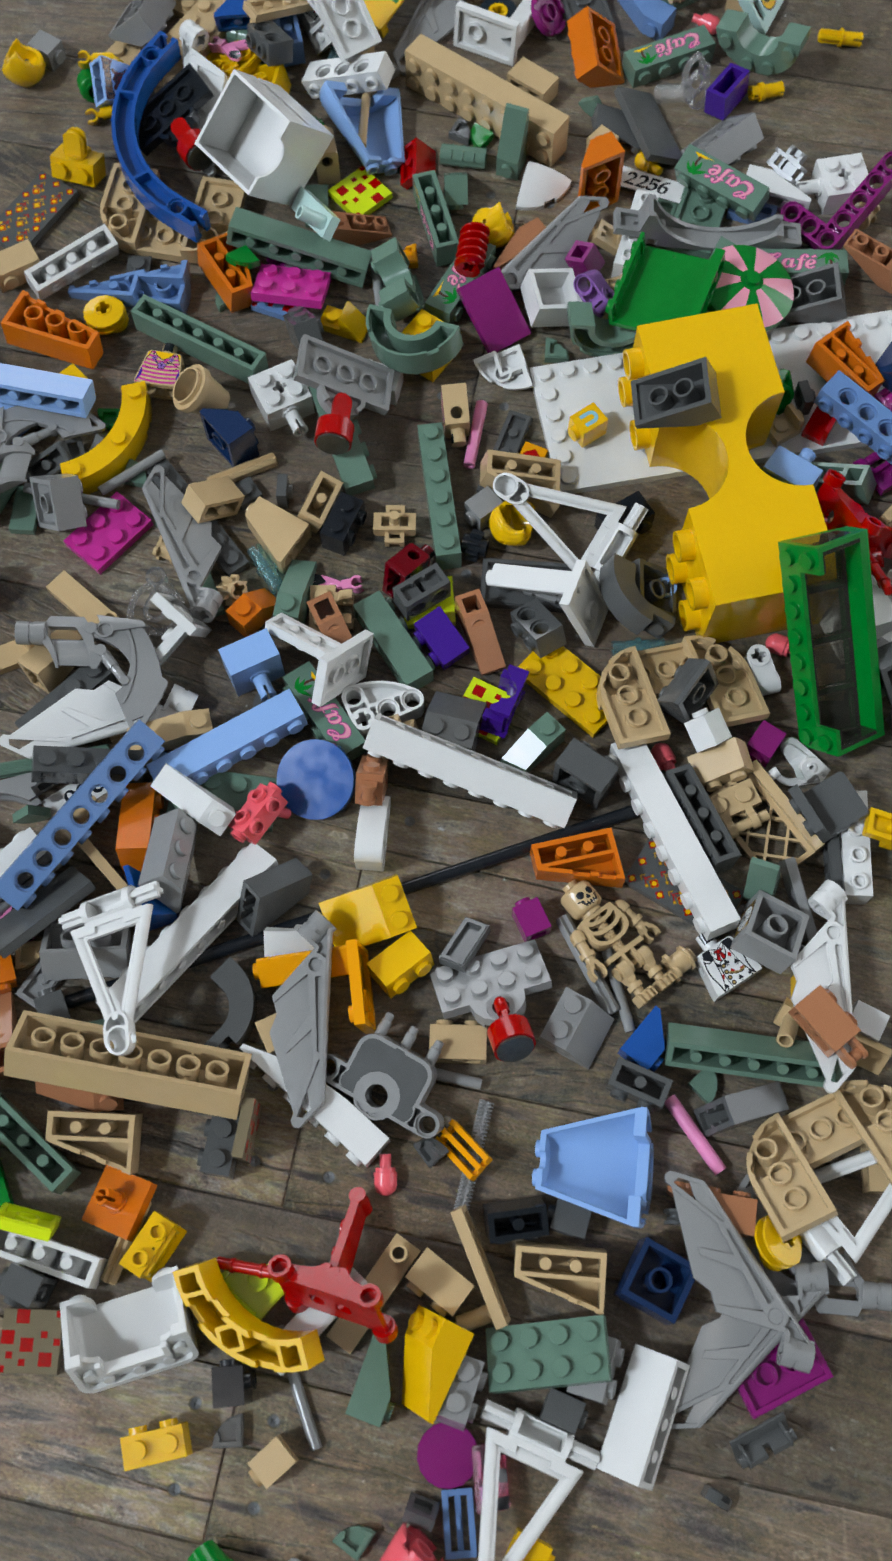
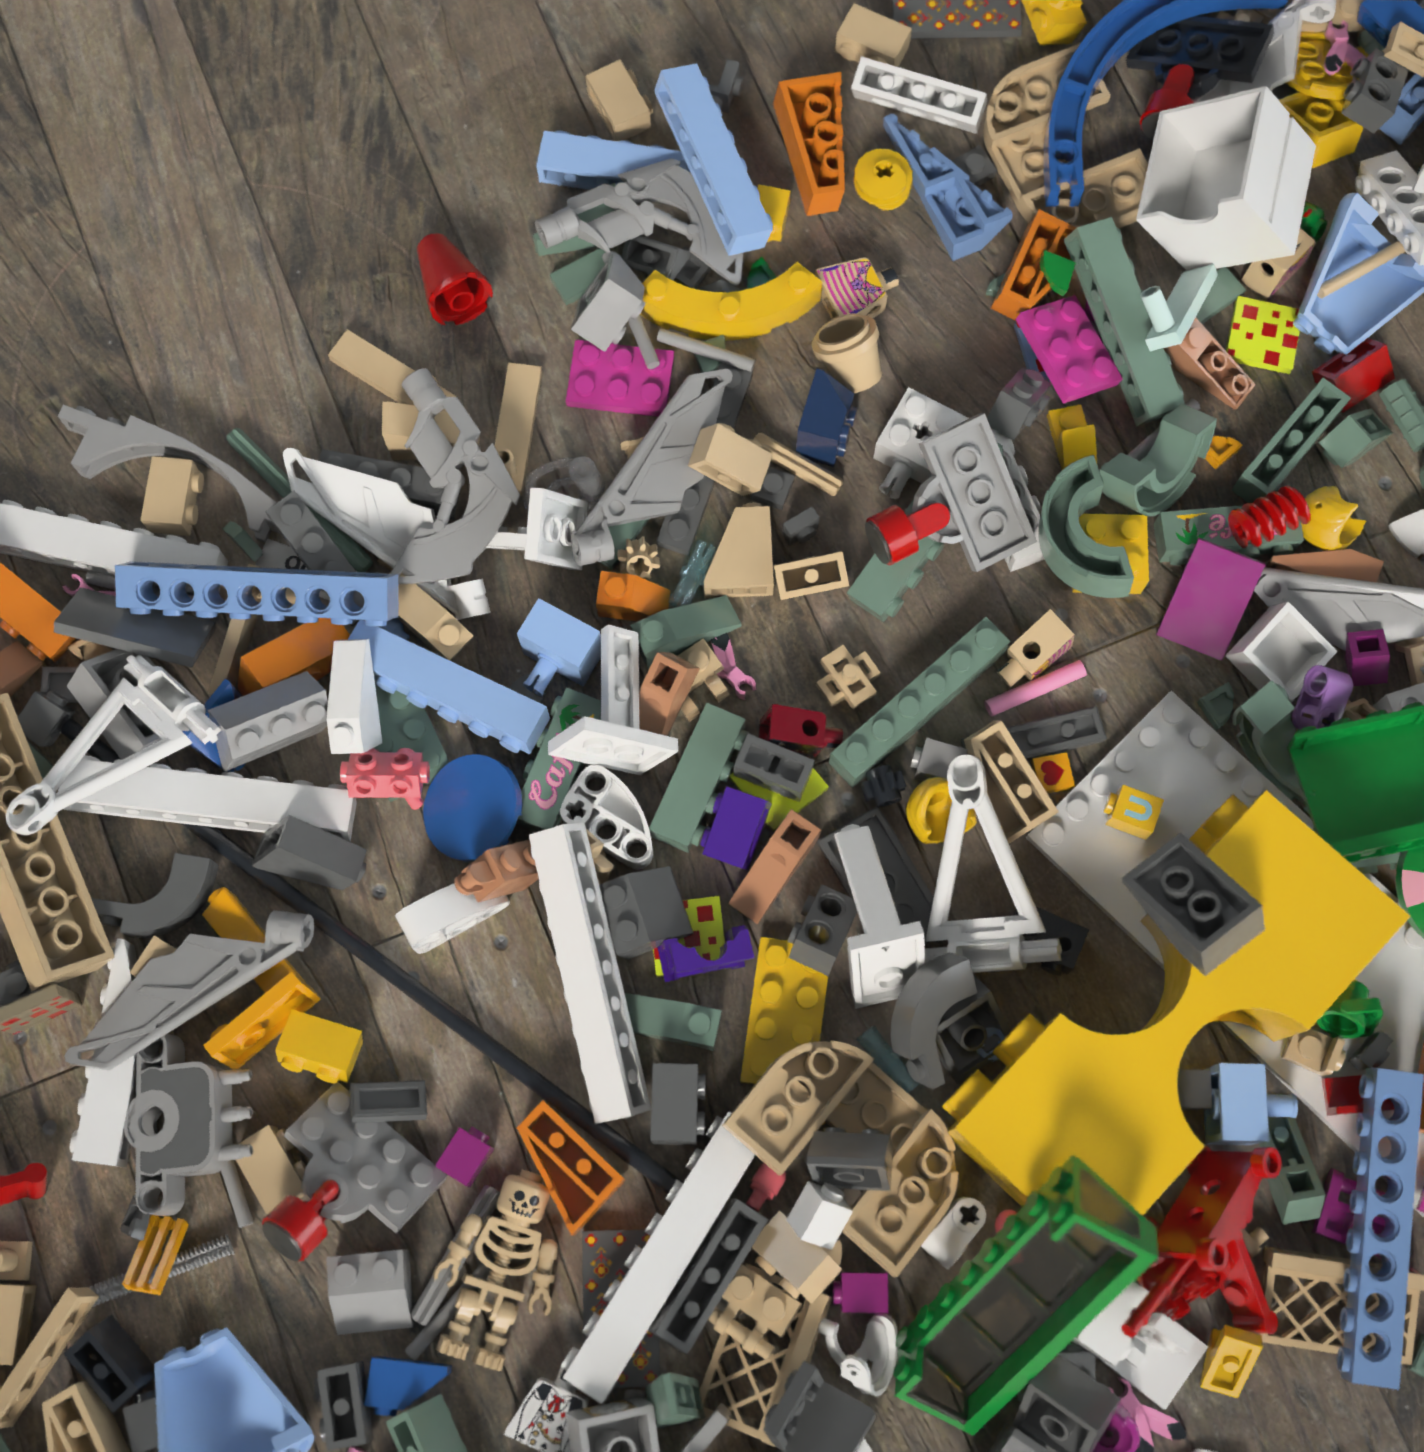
camera: 55 degrees right, 5 degrees up
(198, 339) = (922, 300): sand green brick -> none
(284, 941) = (262, 898): white slope -> none
(343, 524) = (805, 620): black brick -> none
(369, 912) = (355, 974): yellow slope -> none
(385, 1176) = (82, 1188): coral cylinder -> none
(505, 368) = (1150, 665): white brick -> none
(679, 961) = (523, 1361): tan brick -> none

